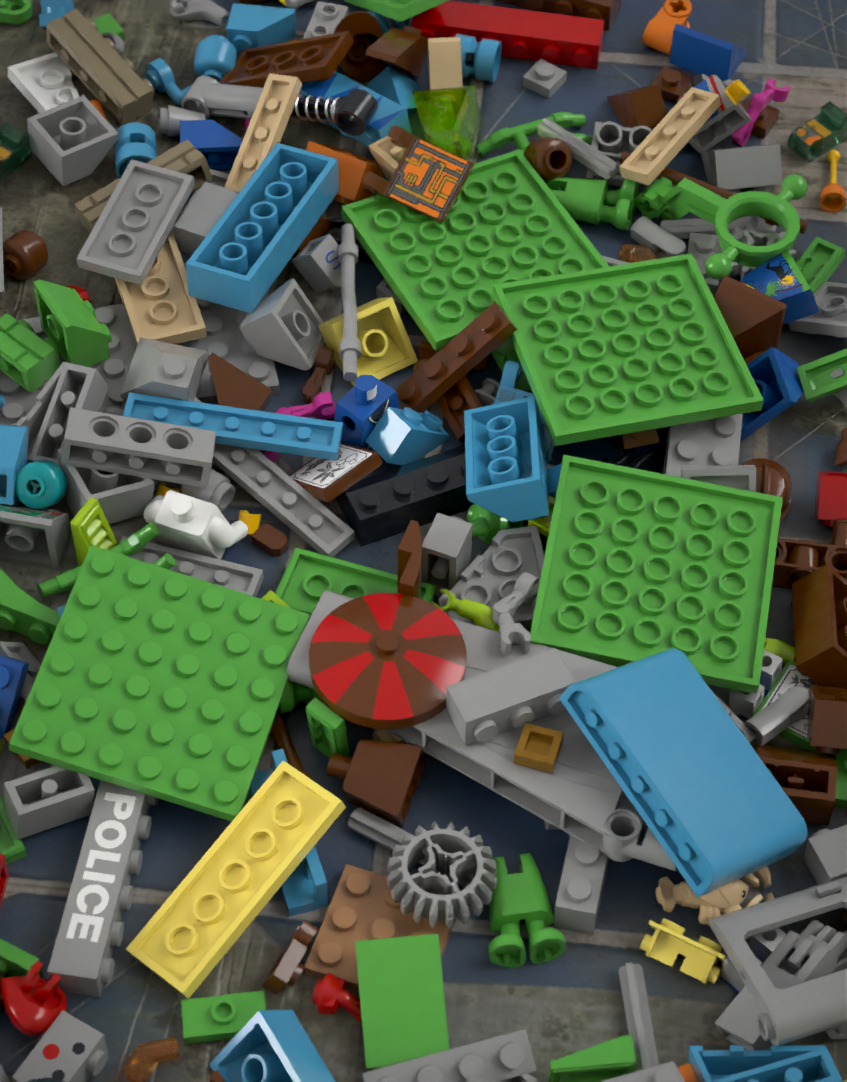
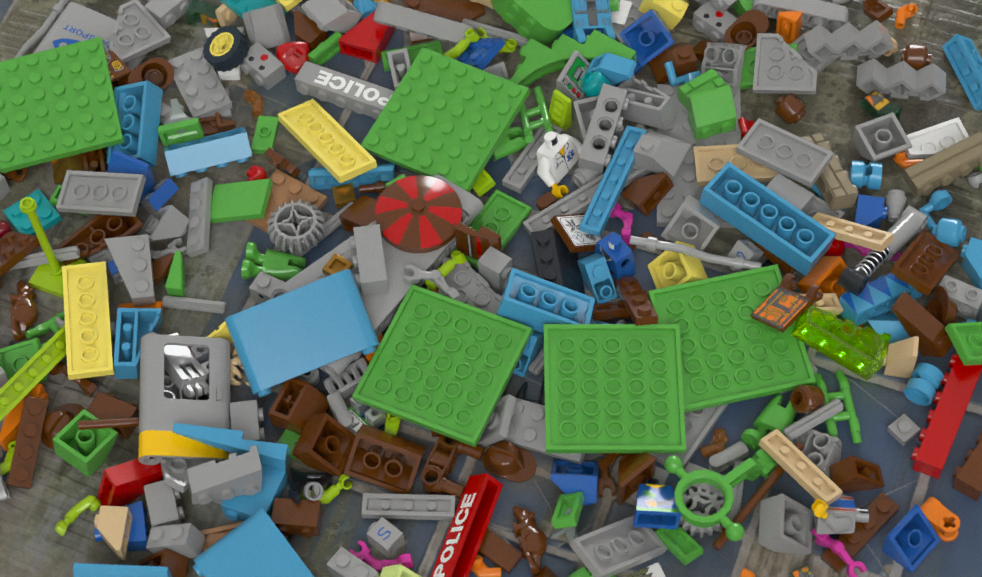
camera: 110 degrees right, 5 degrees up
(337, 844) = (343, 195): none -> pearl gold tile

